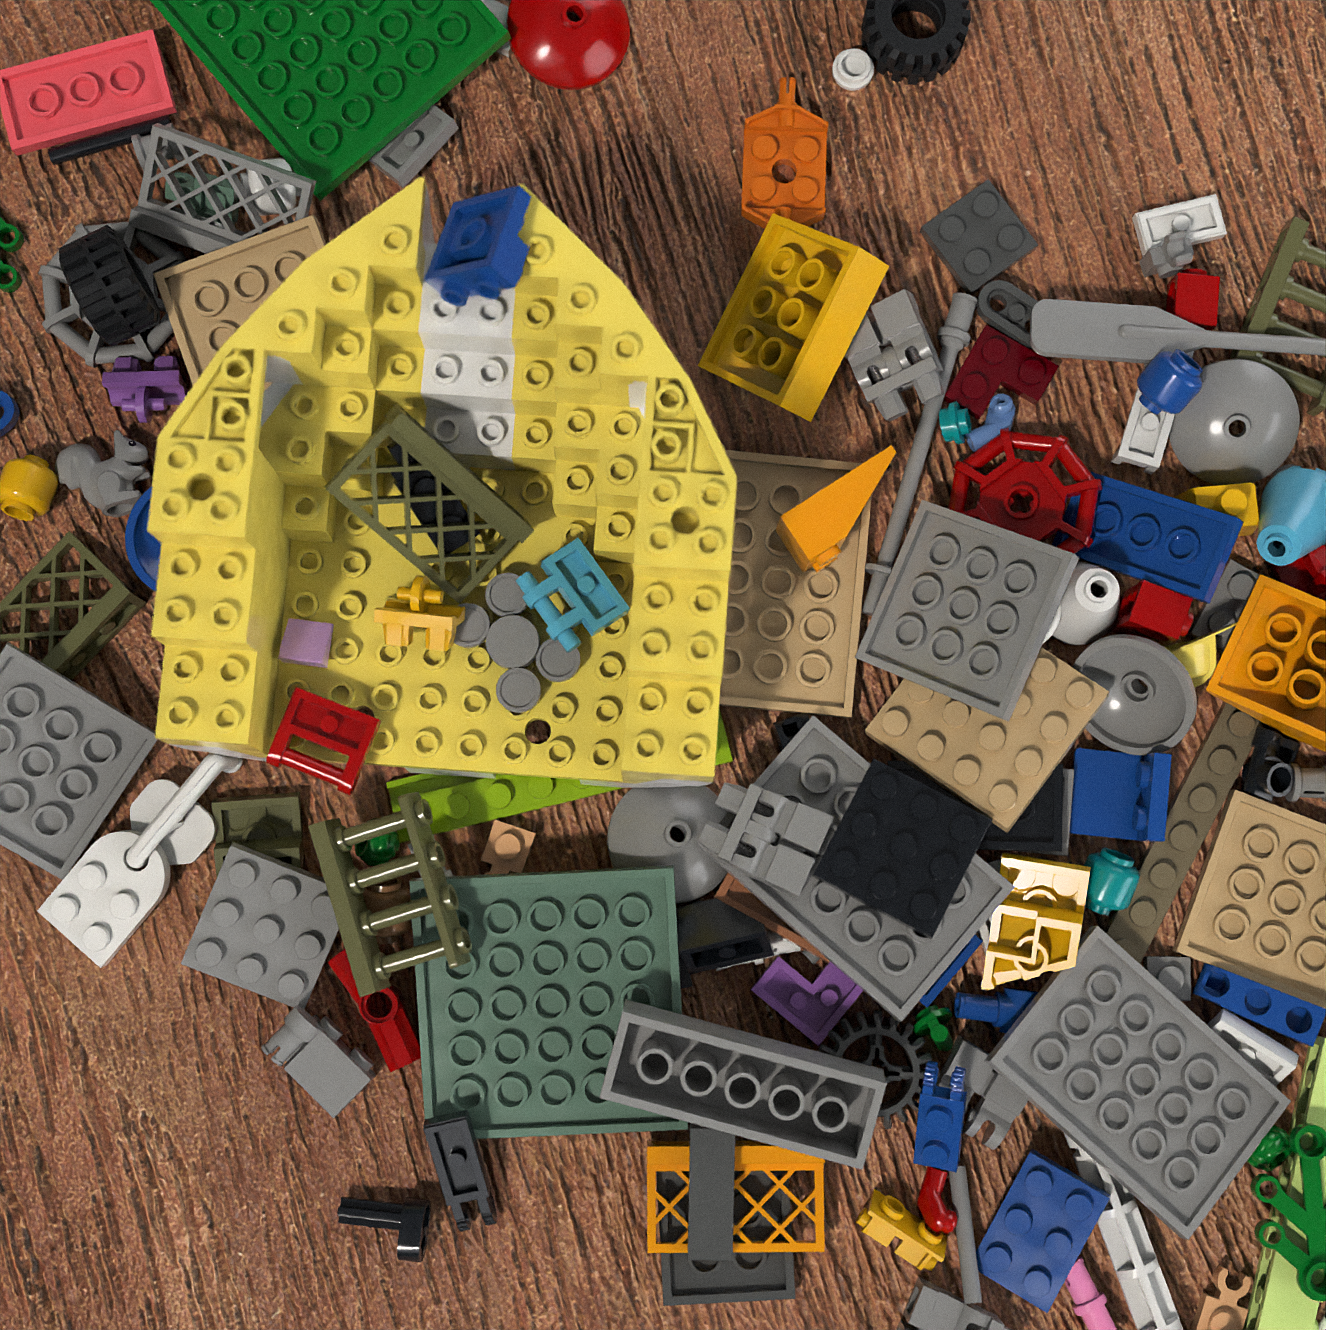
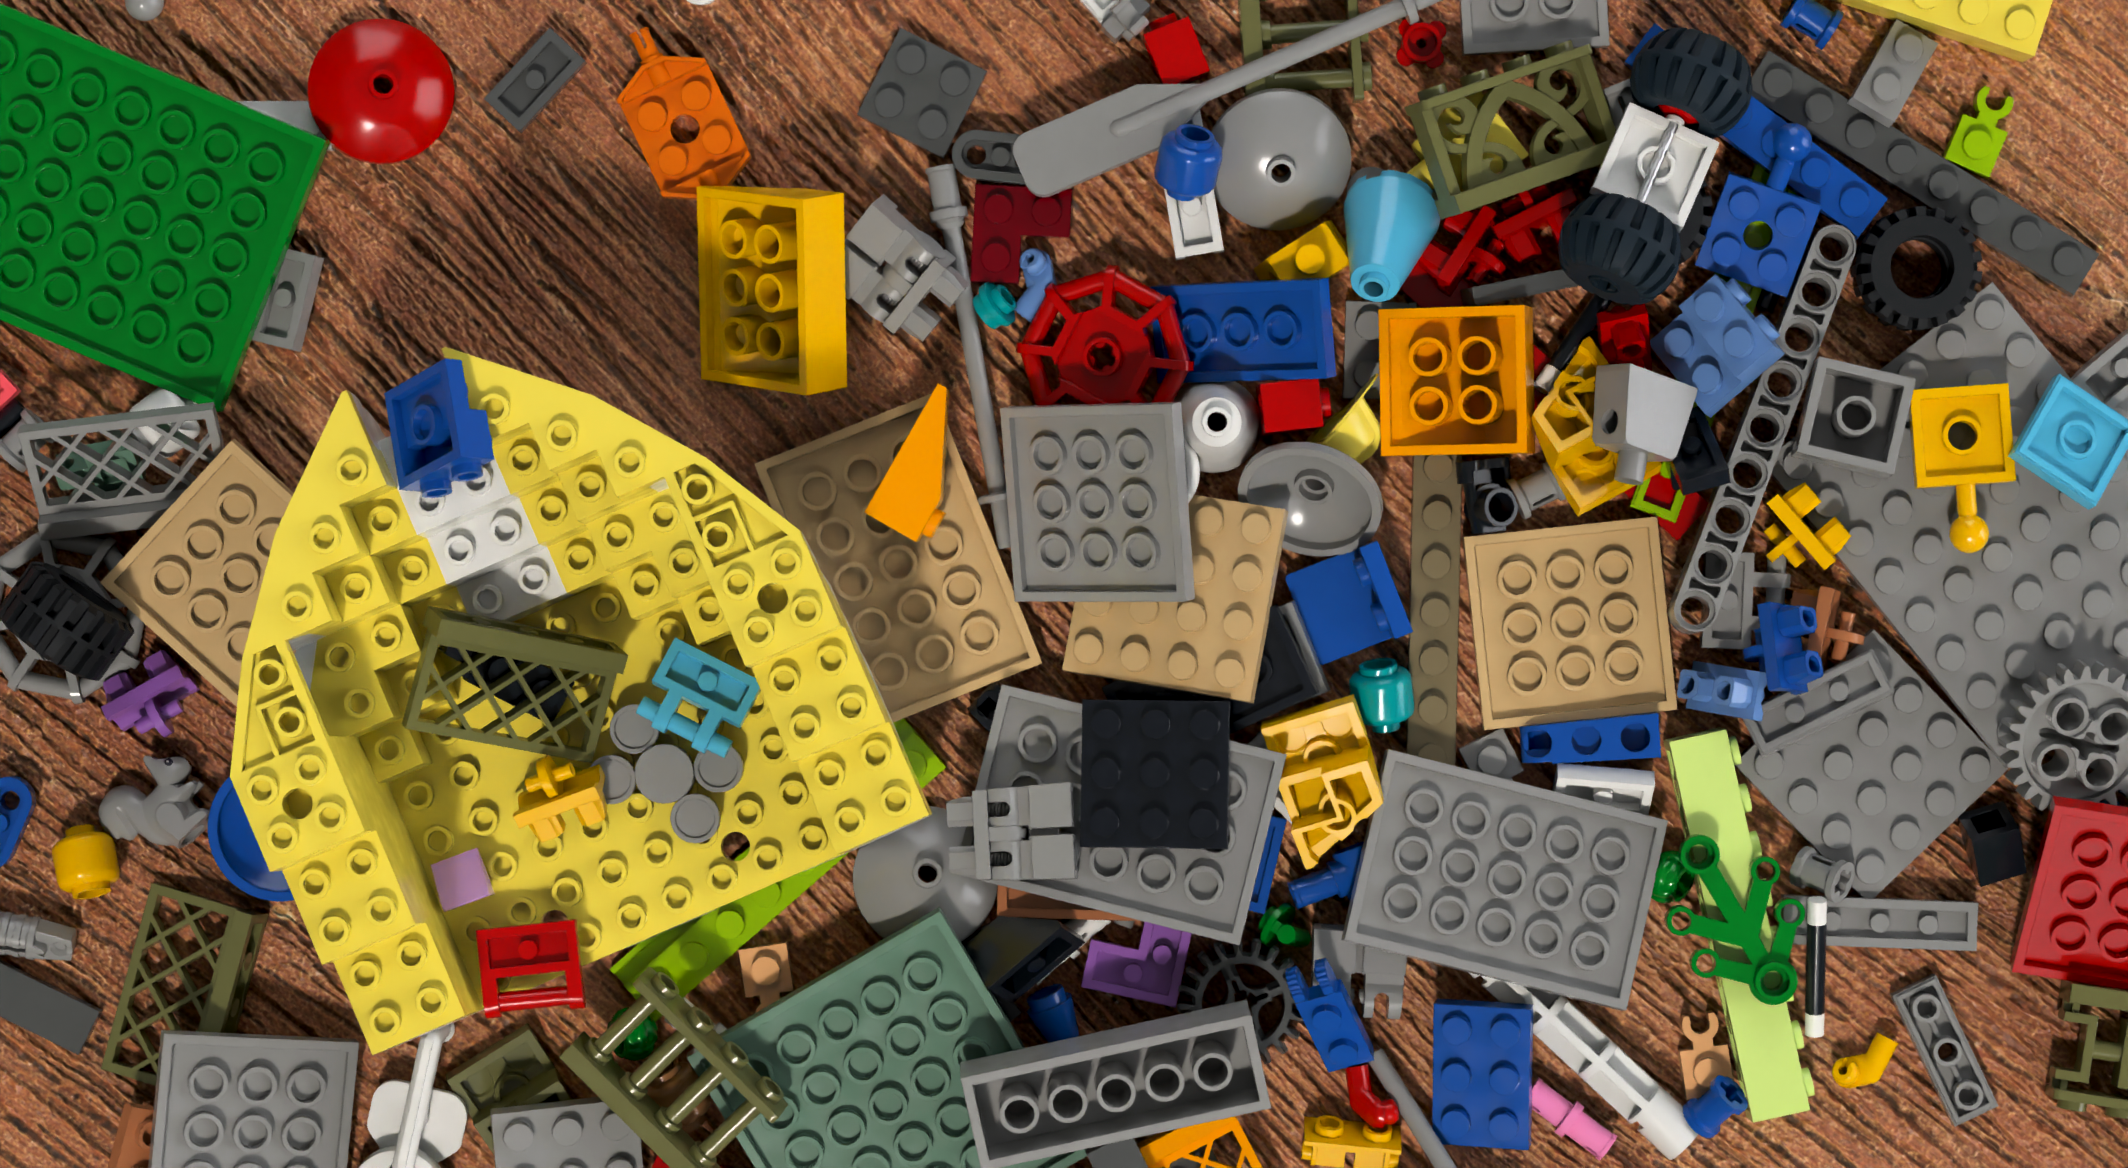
camera: 25 degrees left, 5 degrees up
(689, 78) = (535, 80): none -> dark grey plate
(717, 999) = (1053, 1013): none -> blue cone

